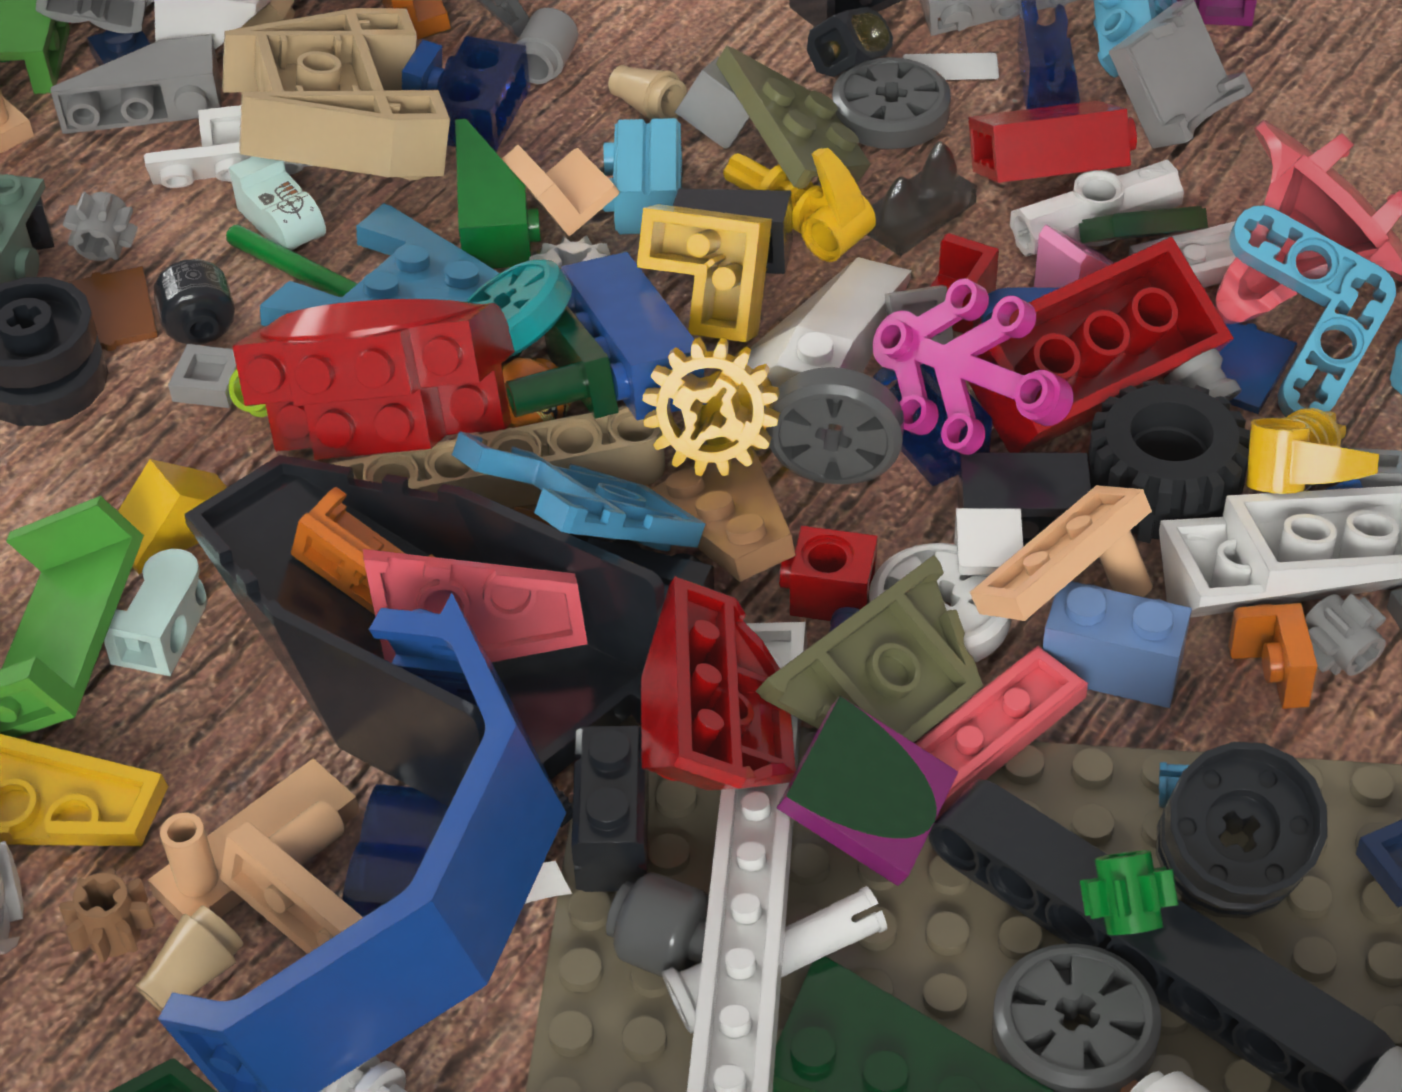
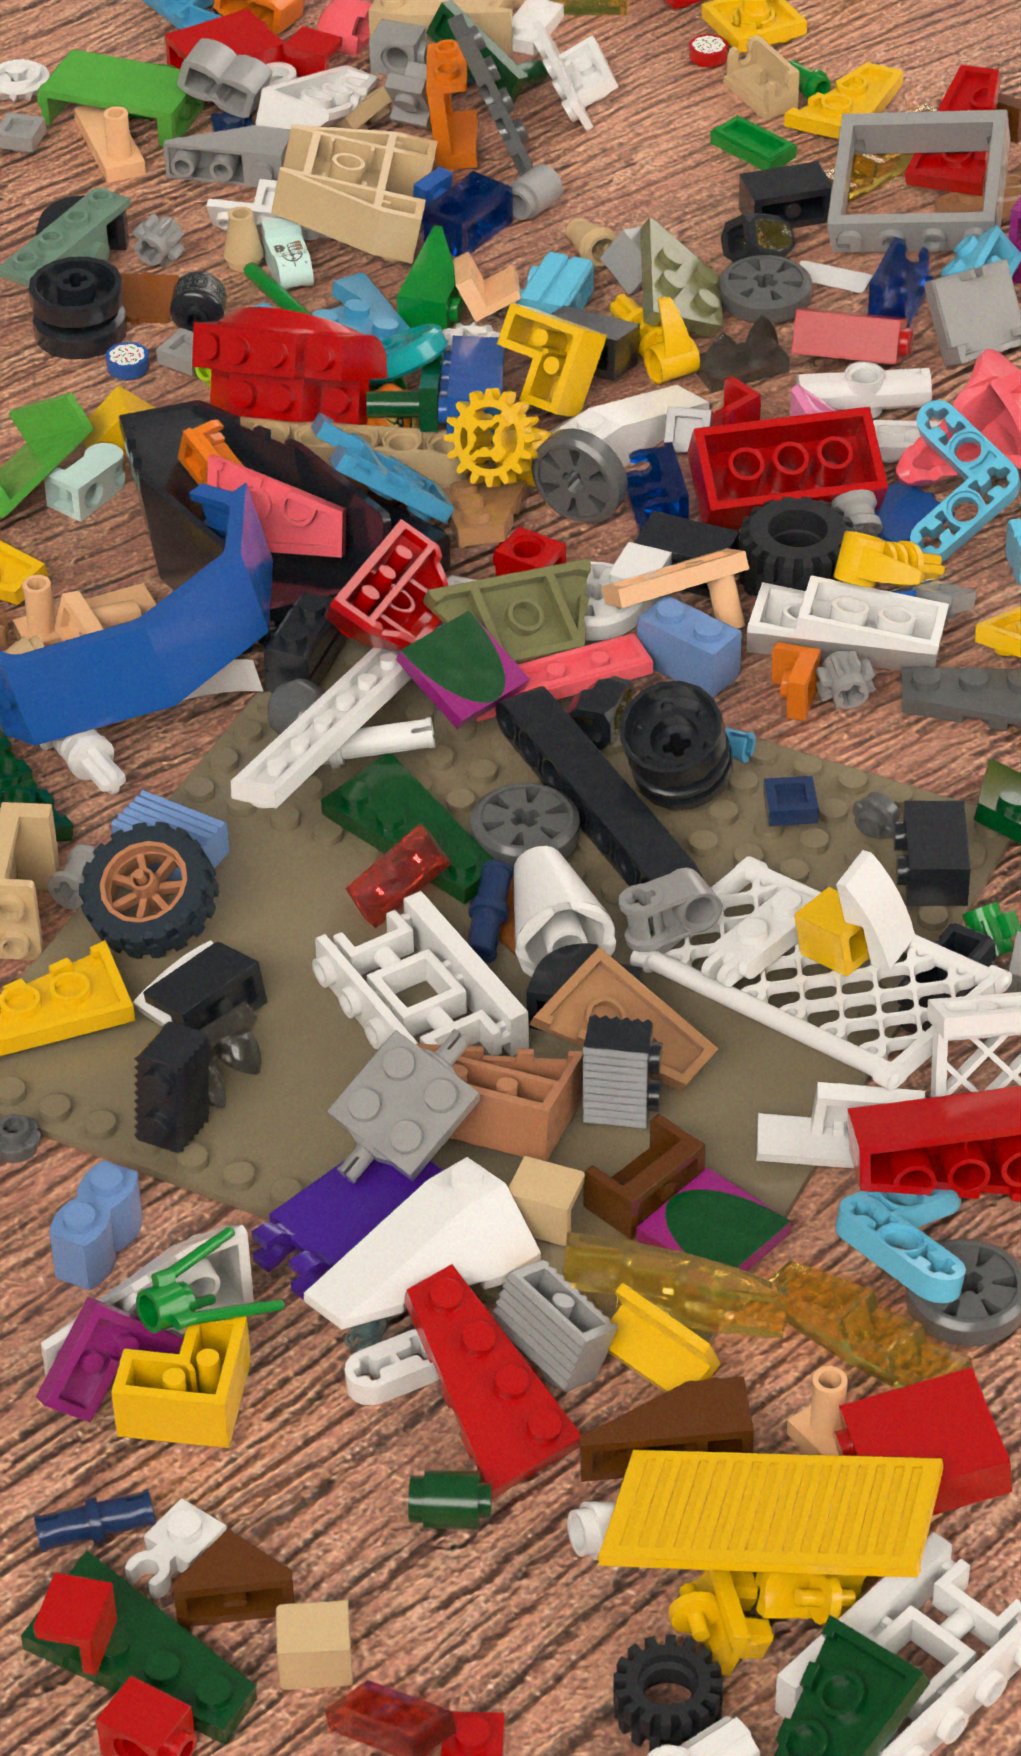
camera: 20 degrees right, 5 degrees down
(129, 408) = (127, 360): none -> tile
(211, 201) = (242, 240): none -> tan cone
(959, 363) = (653, 435): dark pink plant -> none
(1074, 786) = (601, 709): none -> black rock
(1129, 892) = (579, 751): green gear -> none
(1143, 224) = (881, 405): dark green tile -> none

